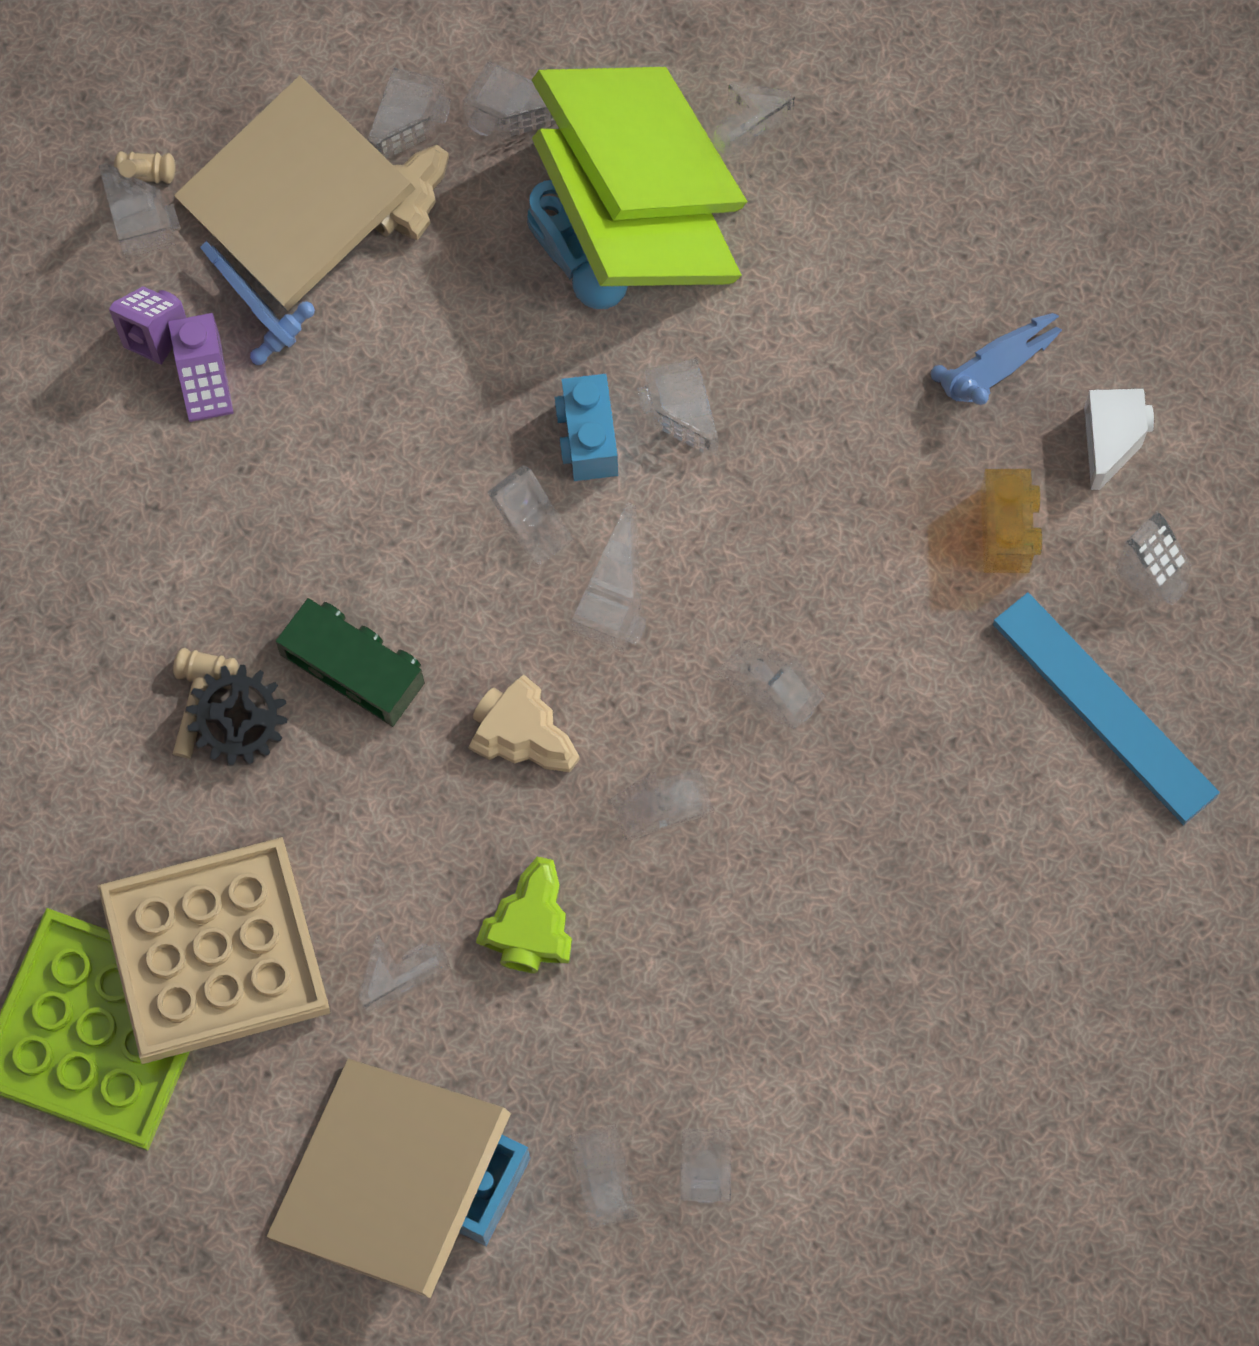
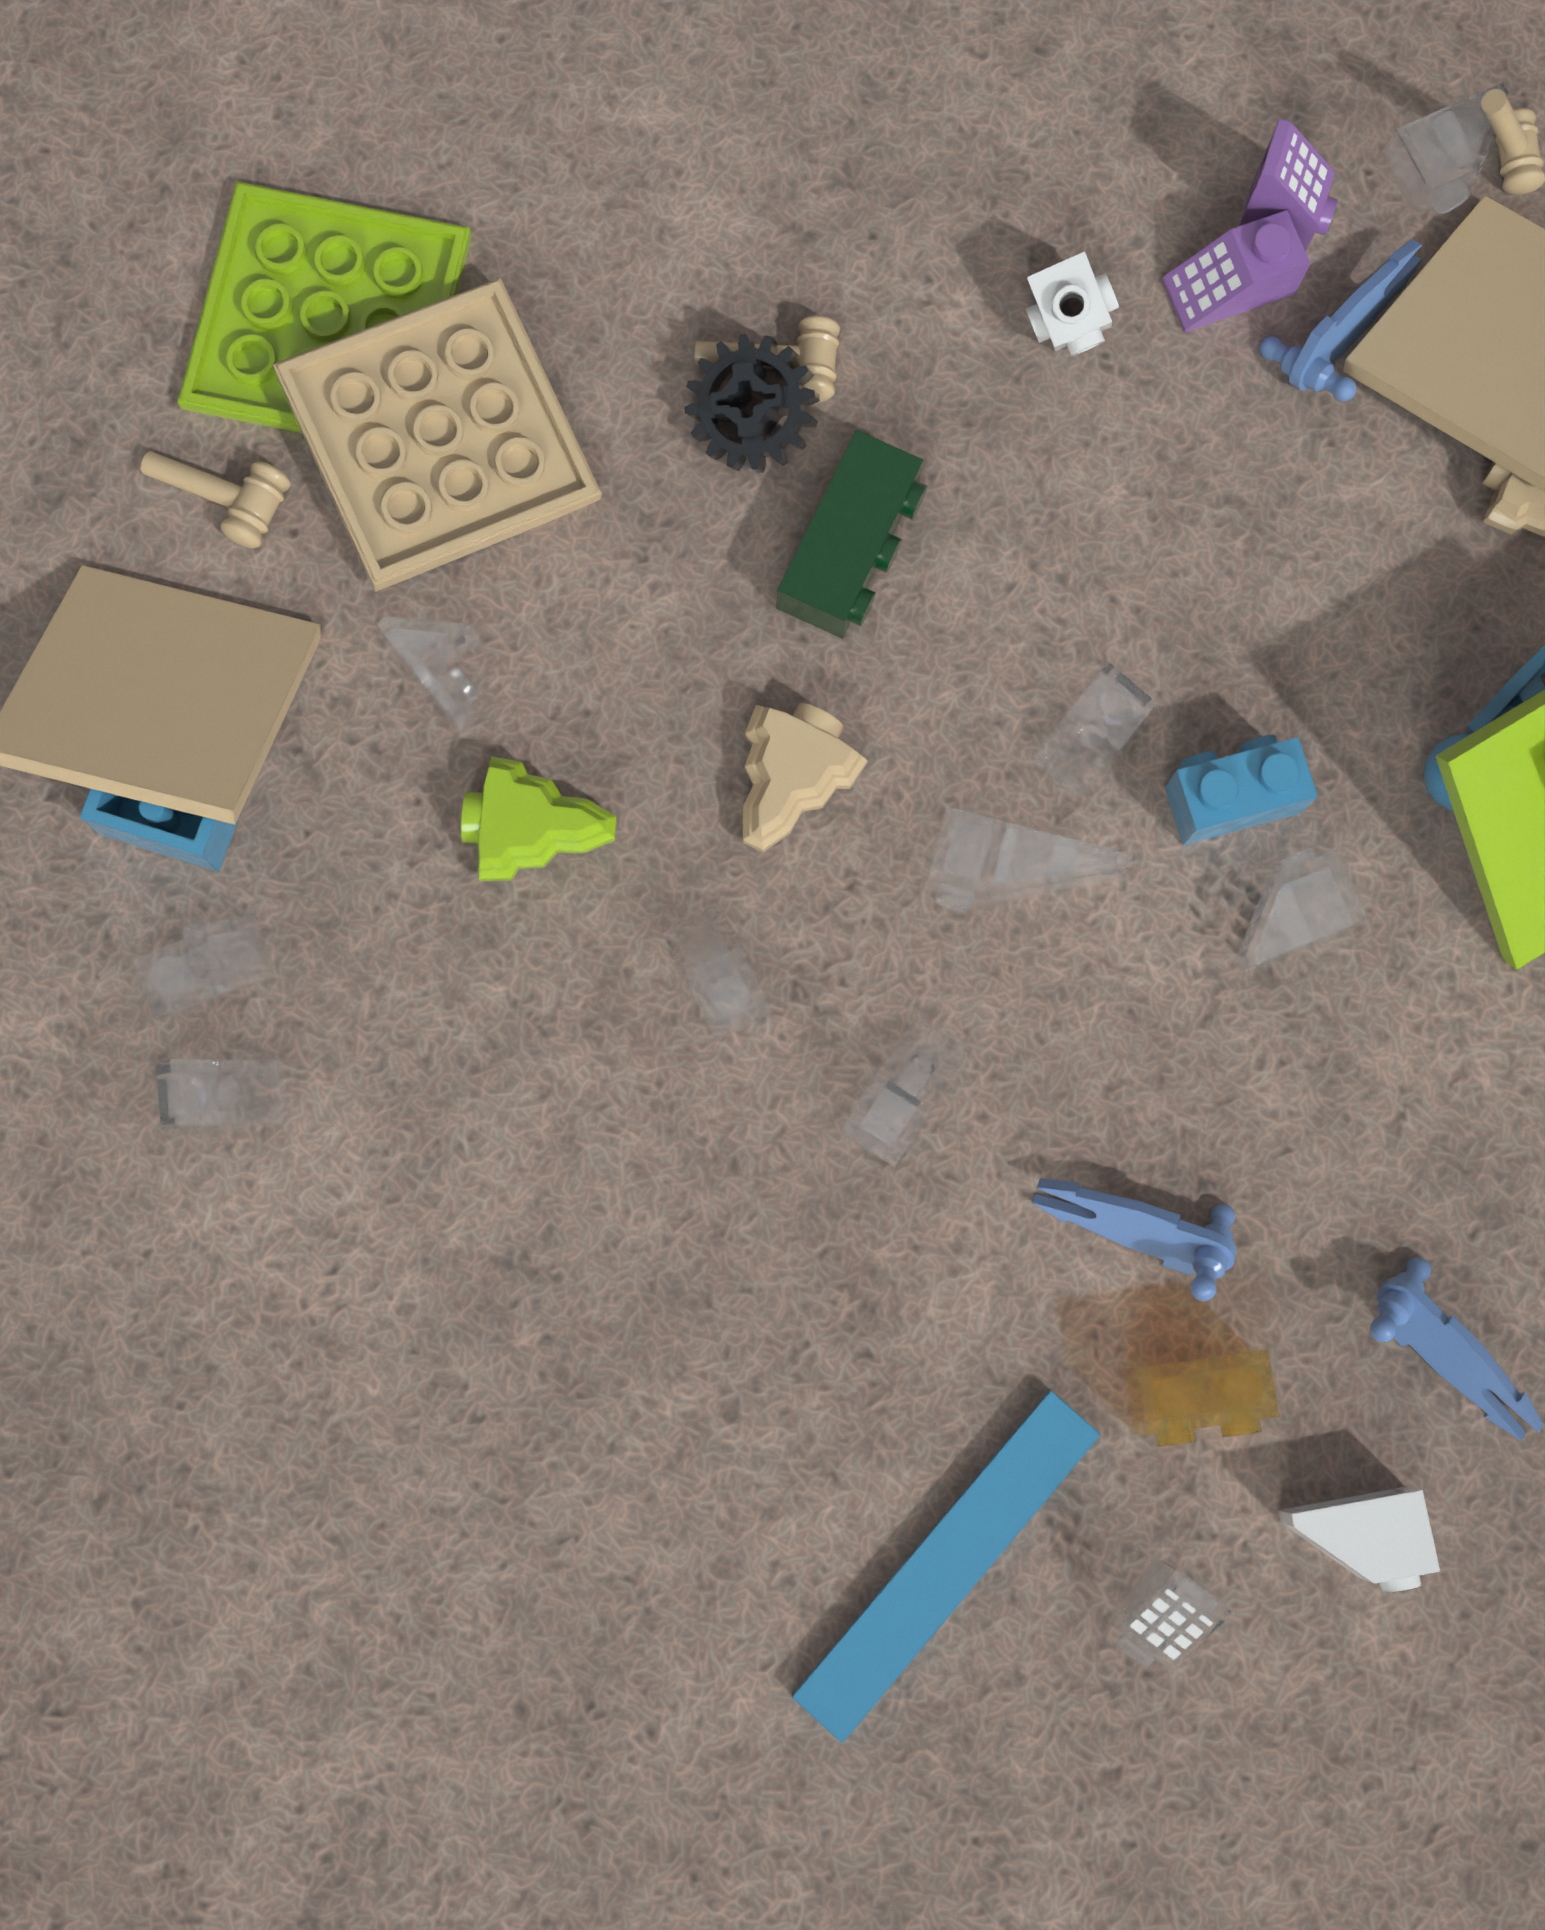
camera: 75 degrees right, 10 degrees up
(191, 488) = (1065, 282): none -> white brick
(239, 1099) = (249, 505): none -> tan piece
(891, 538) = (1149, 1230): none -> medium blue piece

